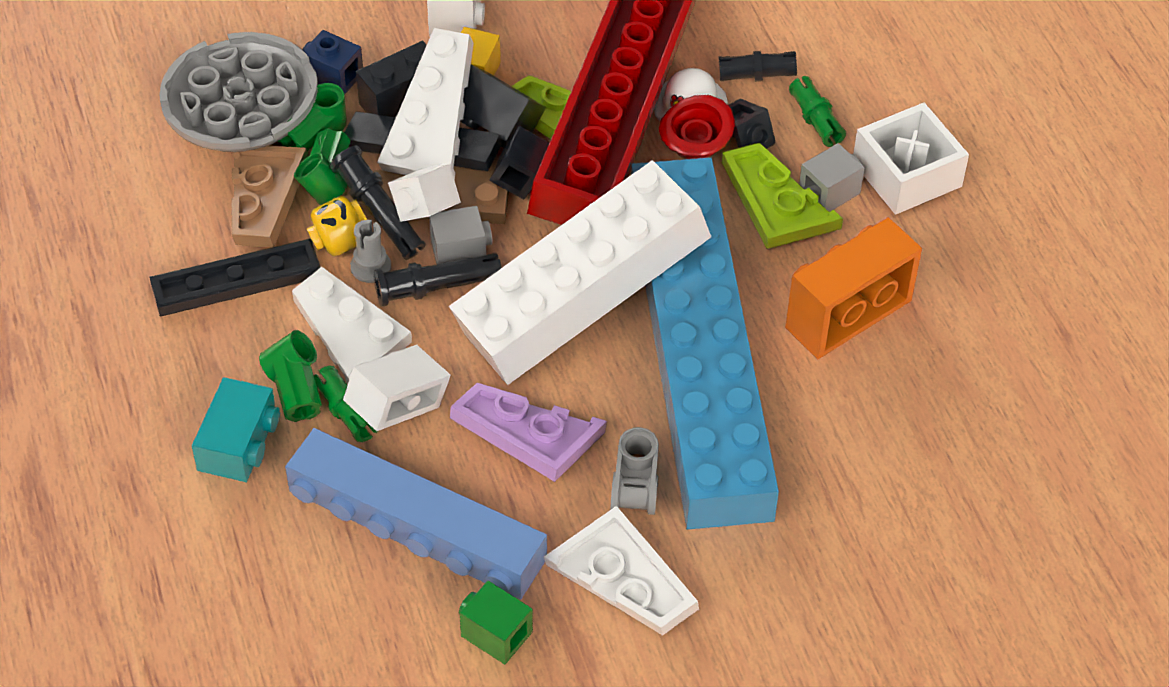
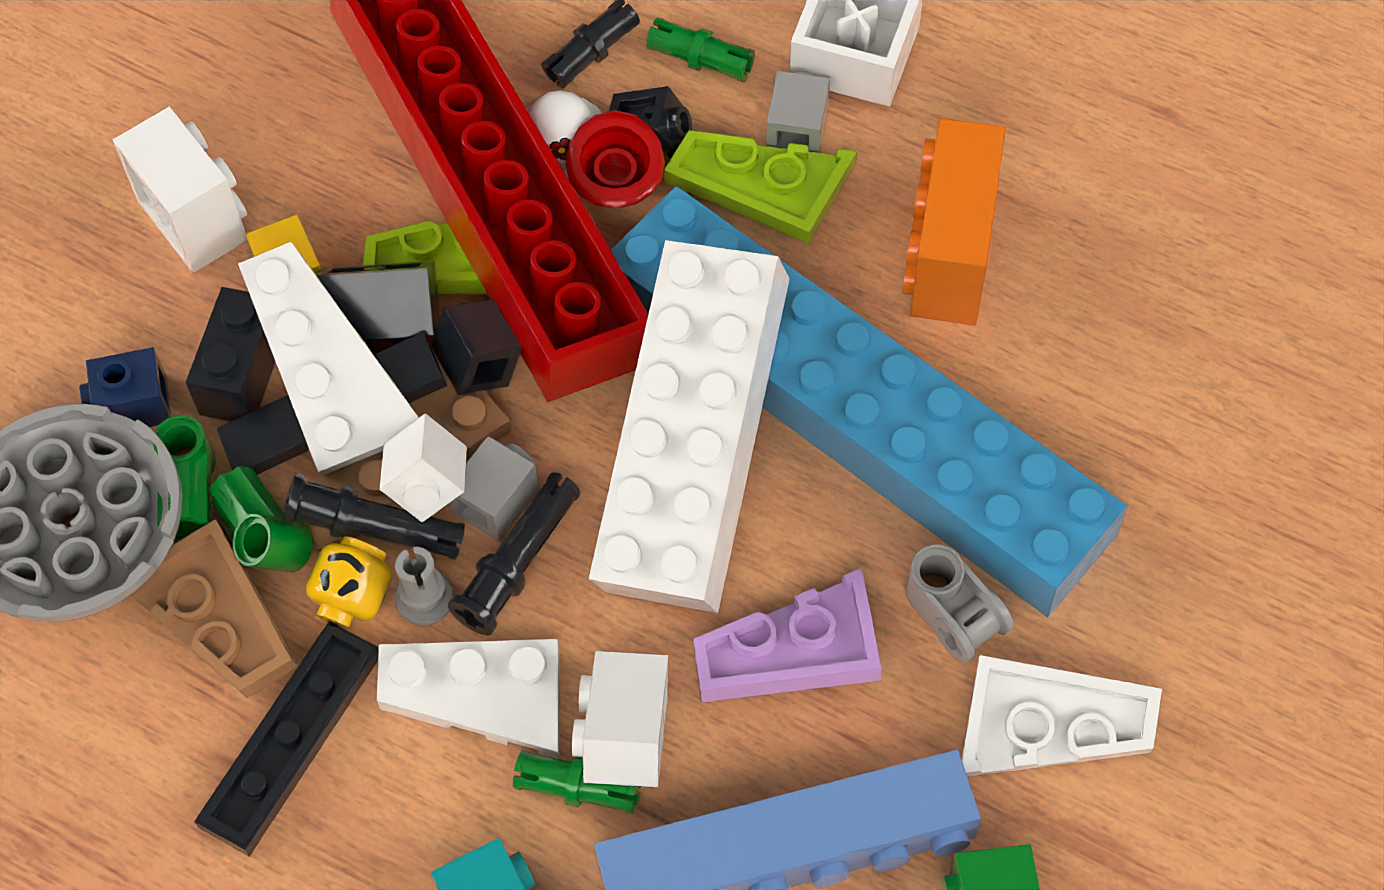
camera: 40 degrees left, 10 degrees up
(290, 368) = (478, 792): green piece -> none

